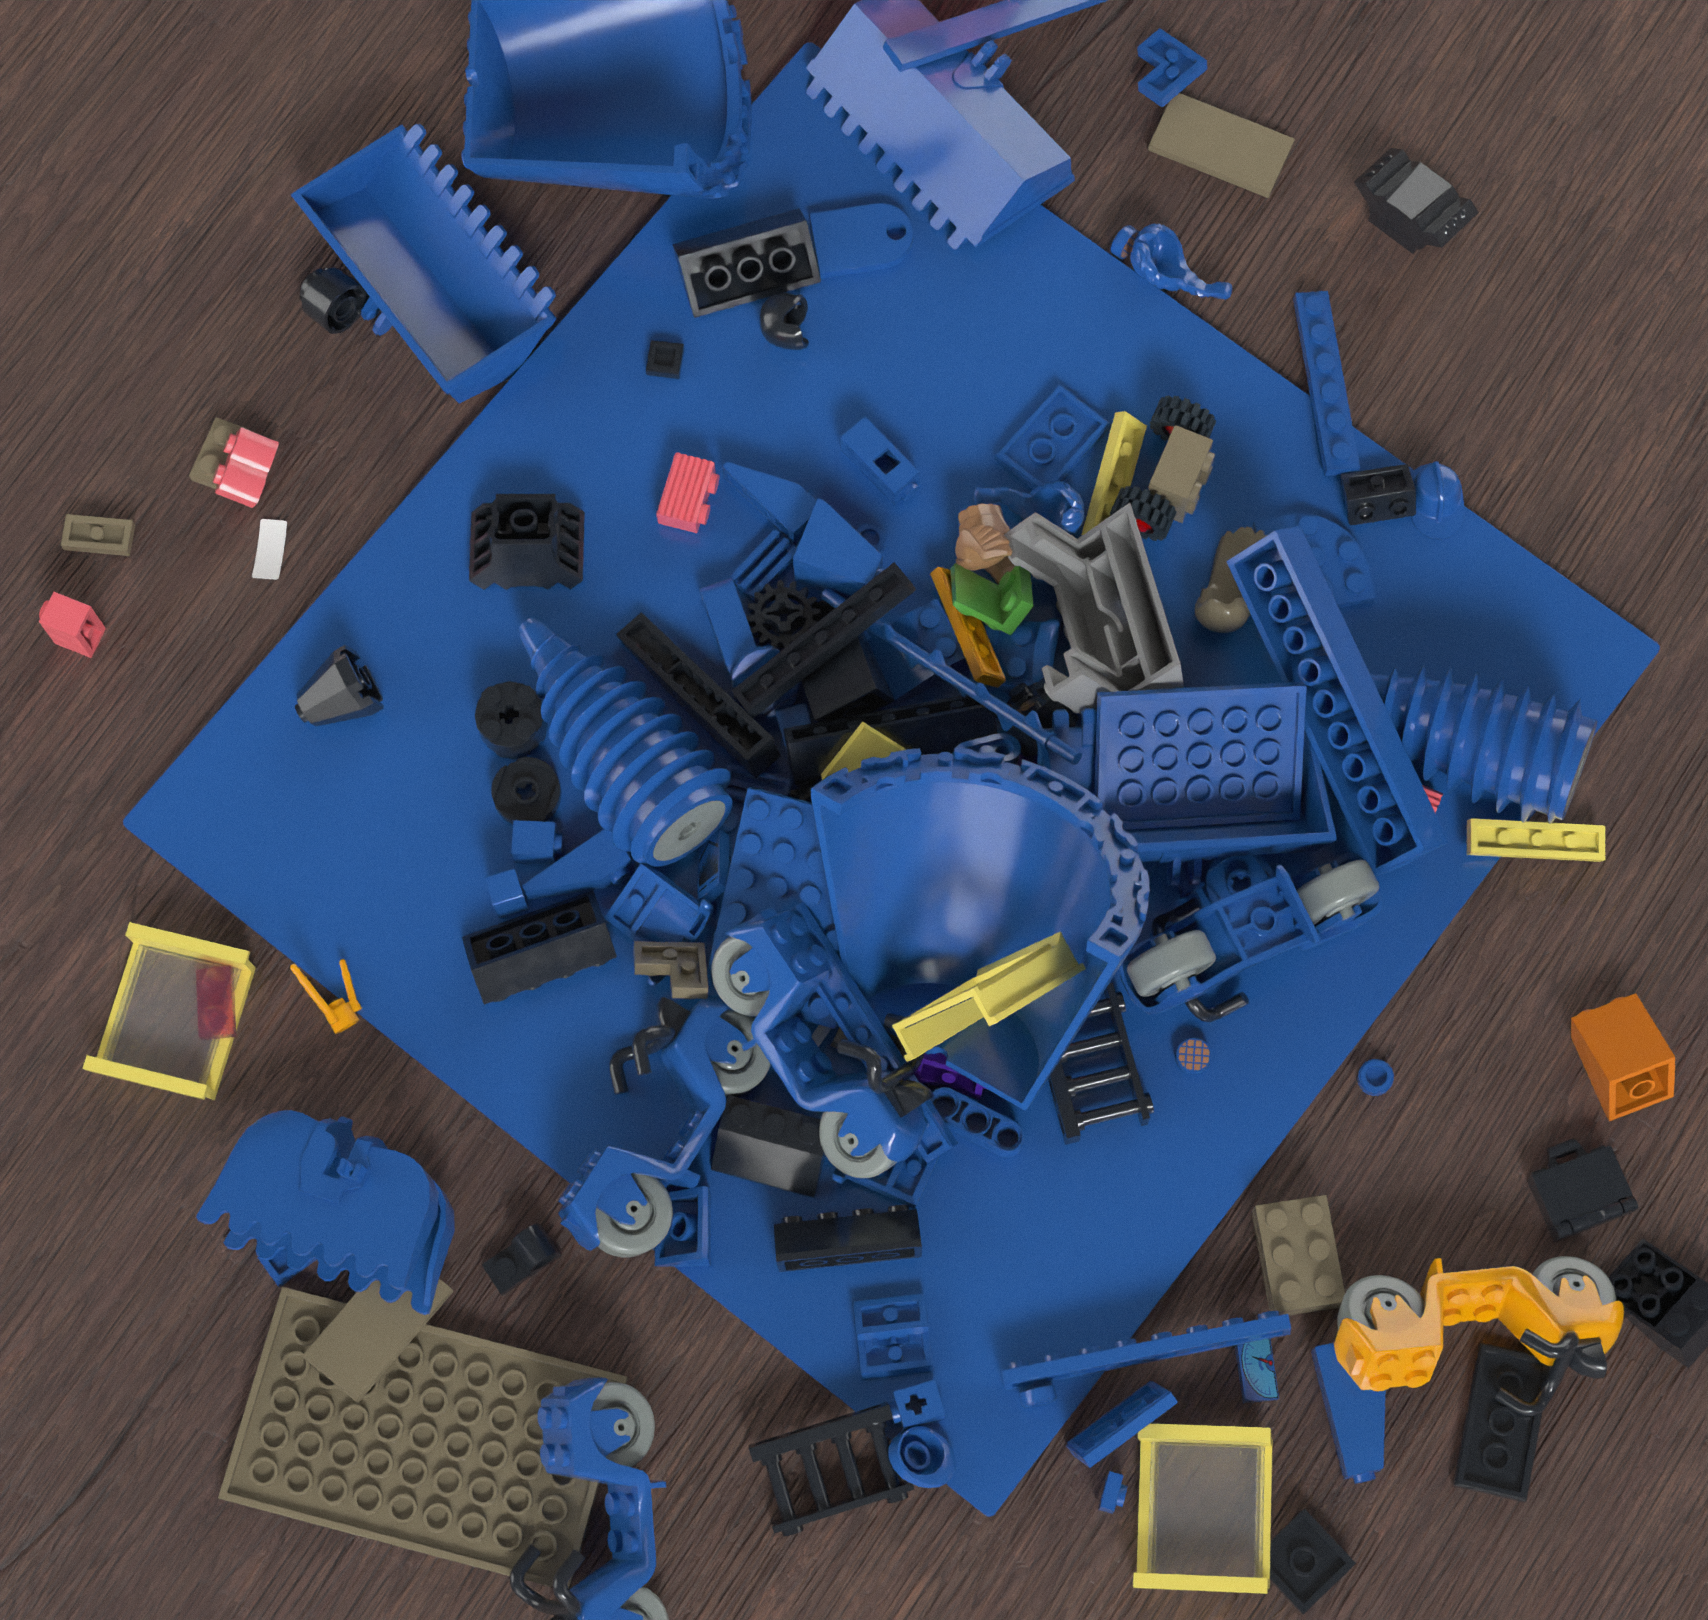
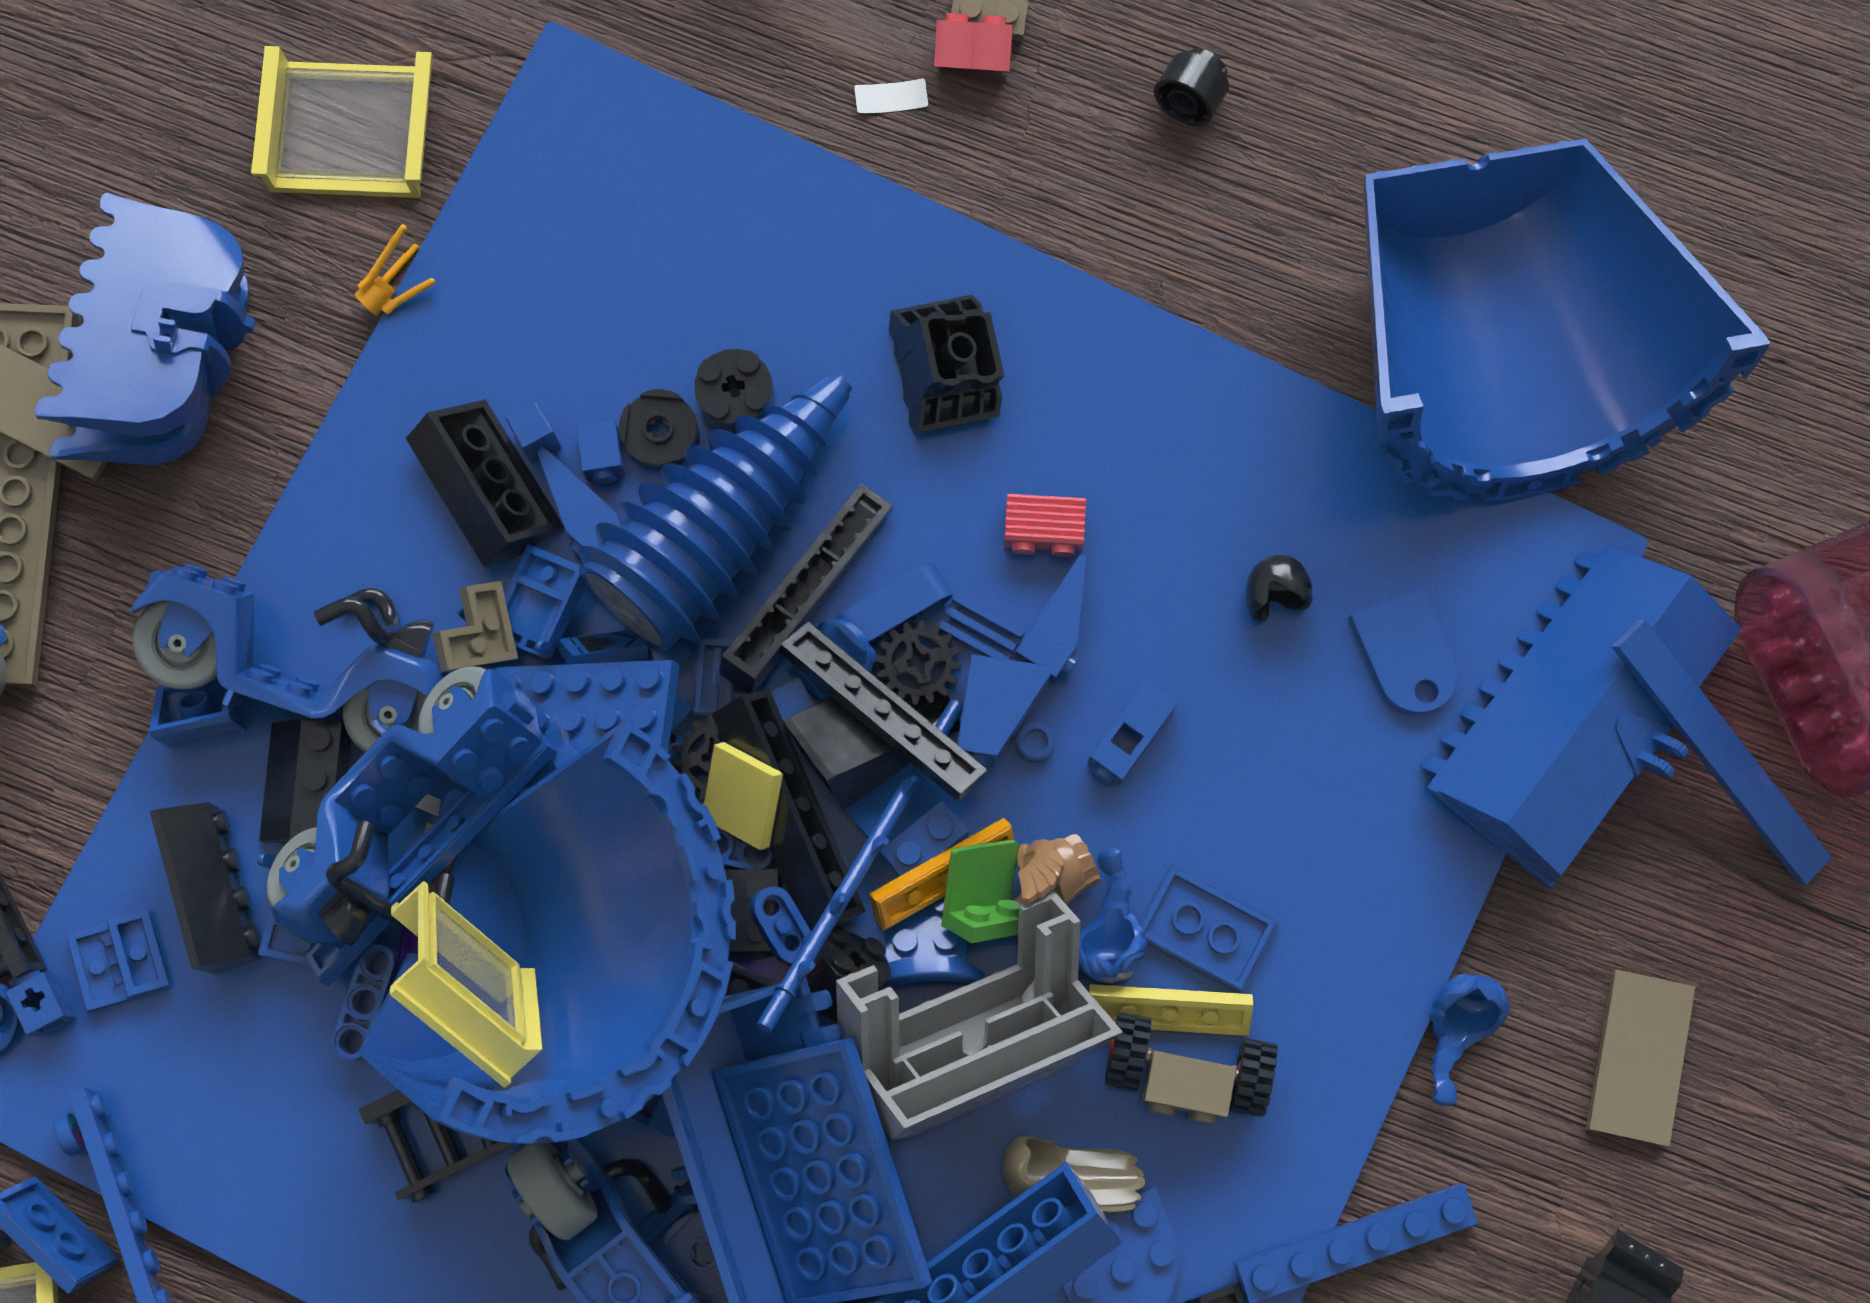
camera: 75 degrees right, 5 degrees up
(216, 1003) = (366, 164): clear pink tile -> none
(339, 691) = (732, 205): black cone -> none
(430, 262) = (1249, 171): blue piece -> none
(526, 1256) = (144, 543): black plate -> none
(665, 359) = (1205, 464): black tile -> none
(747, 262) = (1344, 528): black slope -> none
(1123, 242) = (1481, 963): blue tile -> none
(1174, 67) = (1726, 981): blue plate -> none
(1193, 1056) = (491, 1237): tile -> none

